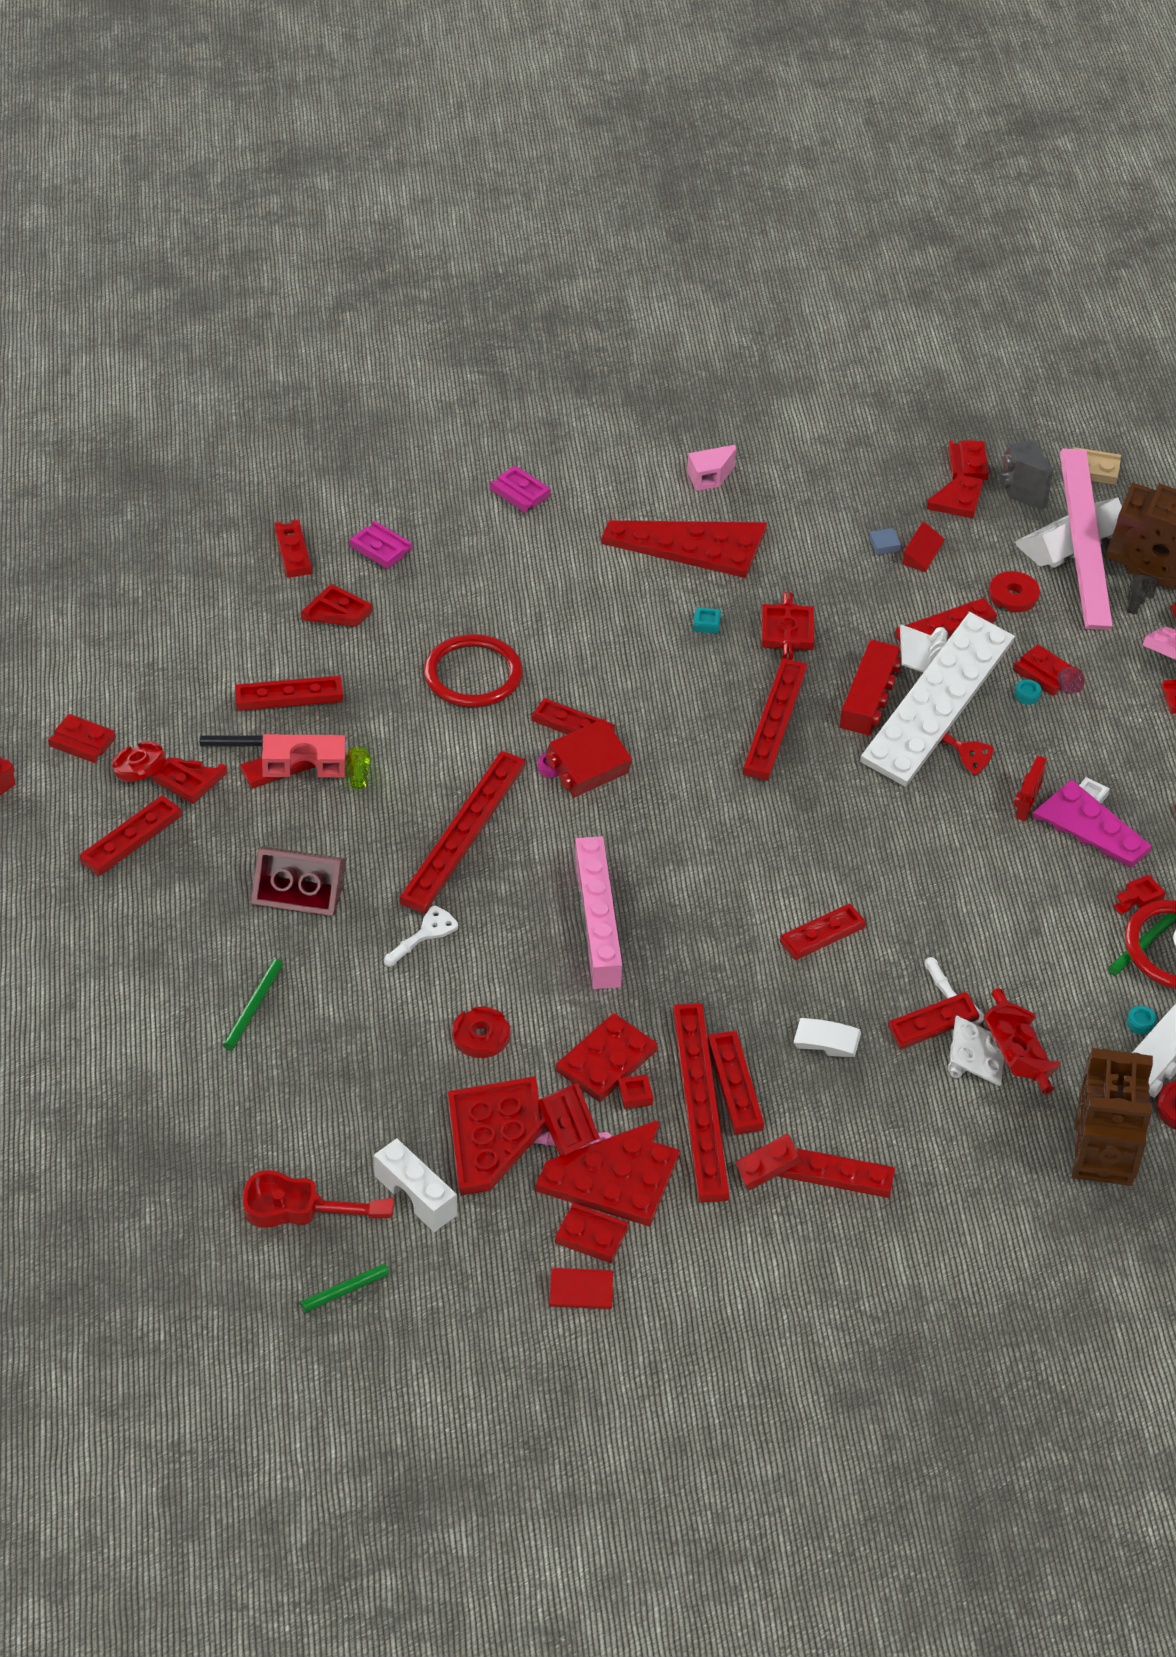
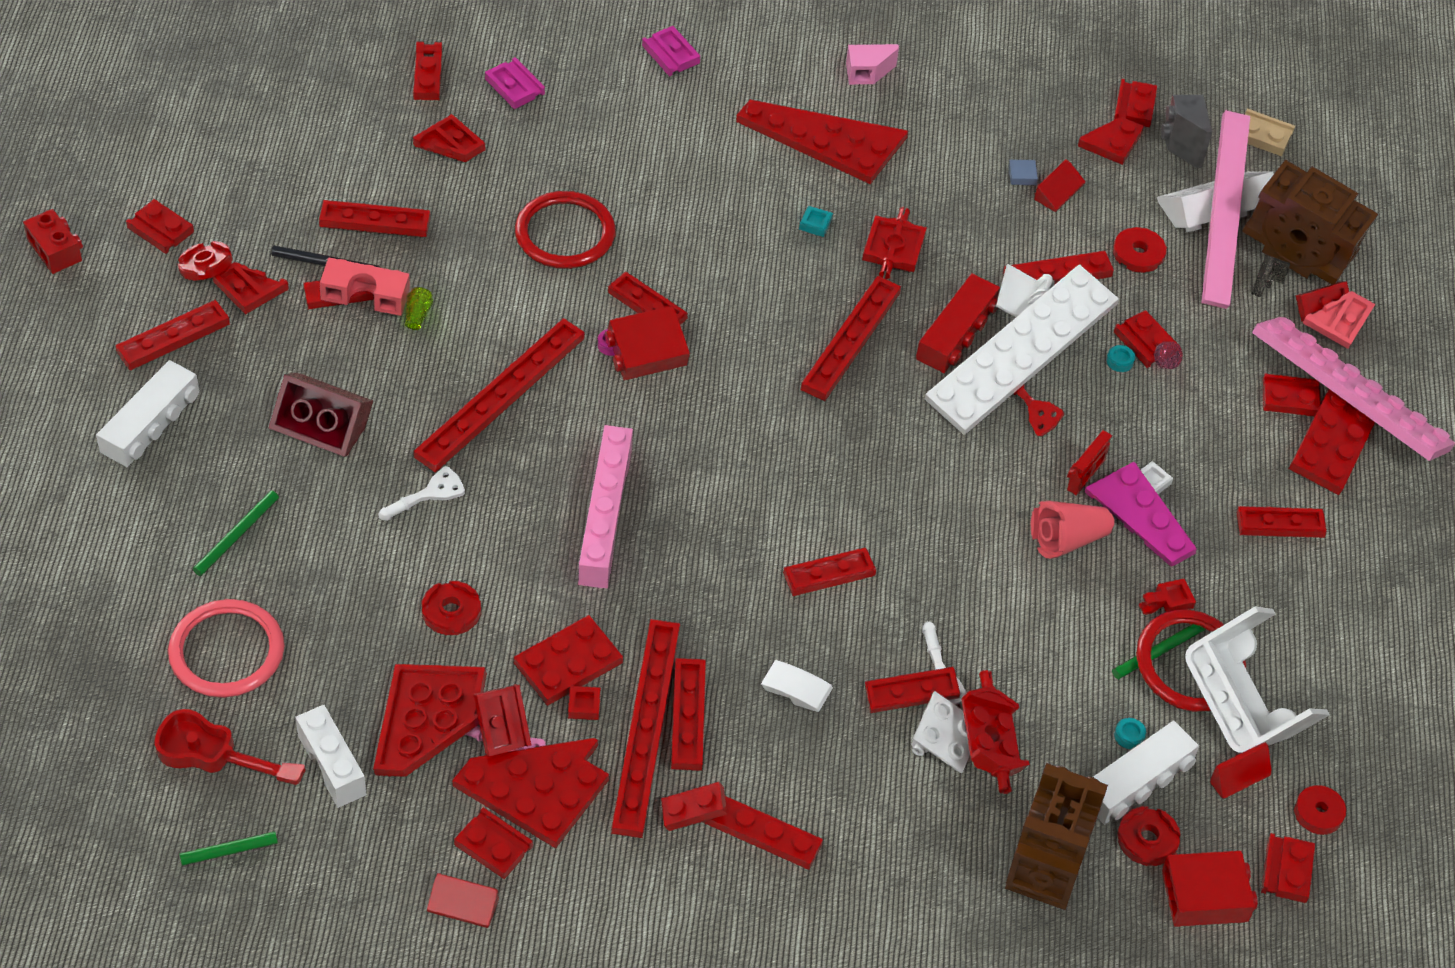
camera: 10 degrees right, 5 degrees up
(133, 911) = (148, 413): none -> white brick
(288, 1148) = (230, 689): none -> coral wedge
(1029, 848) = (1068, 526): none -> coral cone

